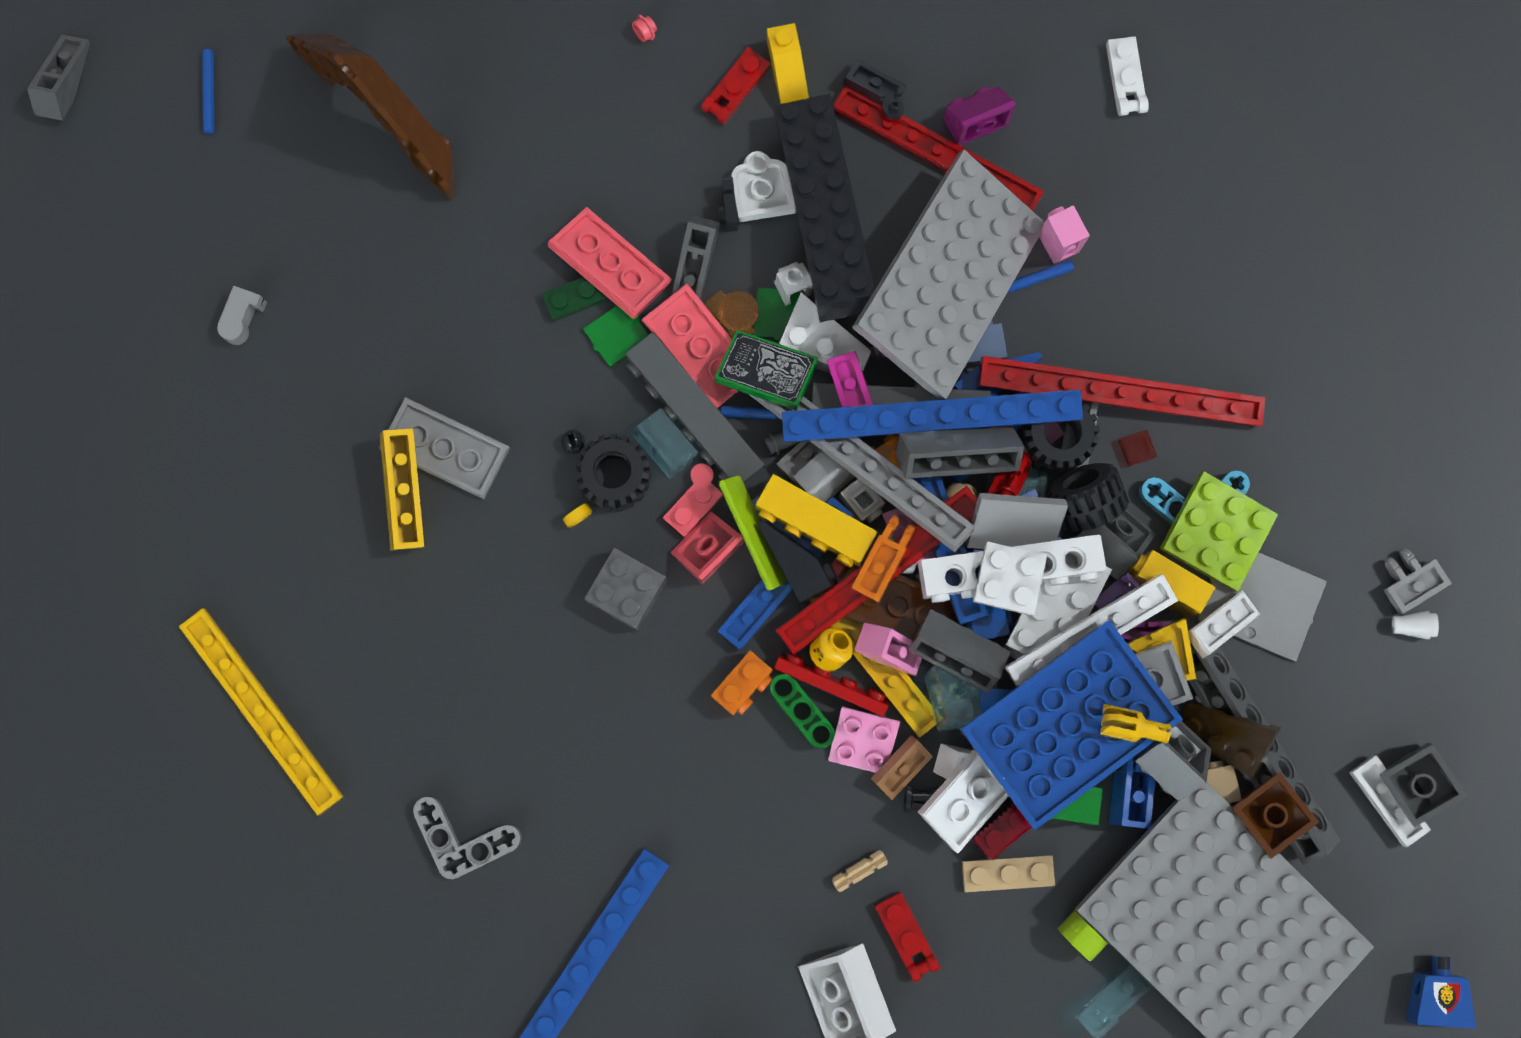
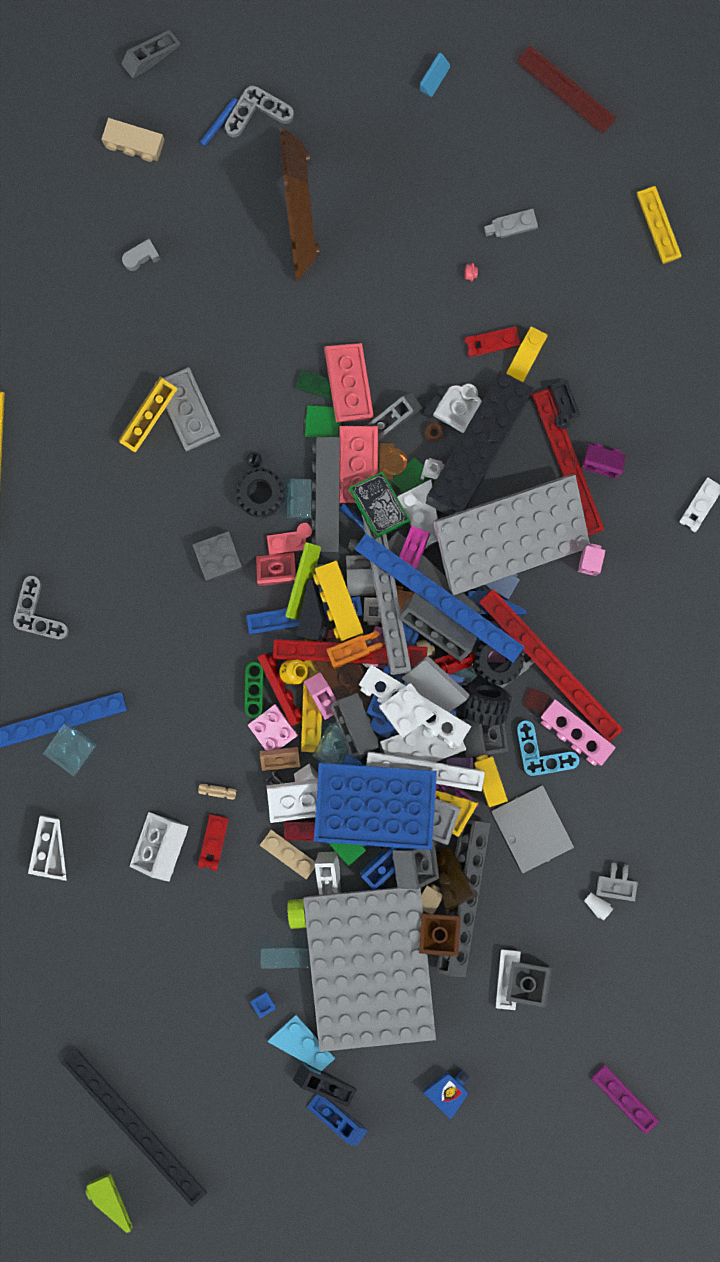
camera: 50 degrees right, 5 degrees up
(120, 190) = (132, 140): none -> tan brick
(231, 42) = (251, 105): none -> light grey beam
(577, 515) = (225, 499): yellow tile -> none
(640, 972) = (69, 749): none -> clear light blue plate
(741, 684) = (236, 651): orange brick -> none
(753, 232) = (437, 427): none -> reddish brown plate
(1041, 275) = (564, 571): blue bar -> none
(1075, 856) = (328, 873): none -> white slope
(1131, 725) = (402, 830): yellow arm -> none
(1218, 531) = (539, 776): lime plate -> none
(1222, 624) = (498, 822): white tile -> none
(1260, 437) = (603, 747): none -> bright pink brick

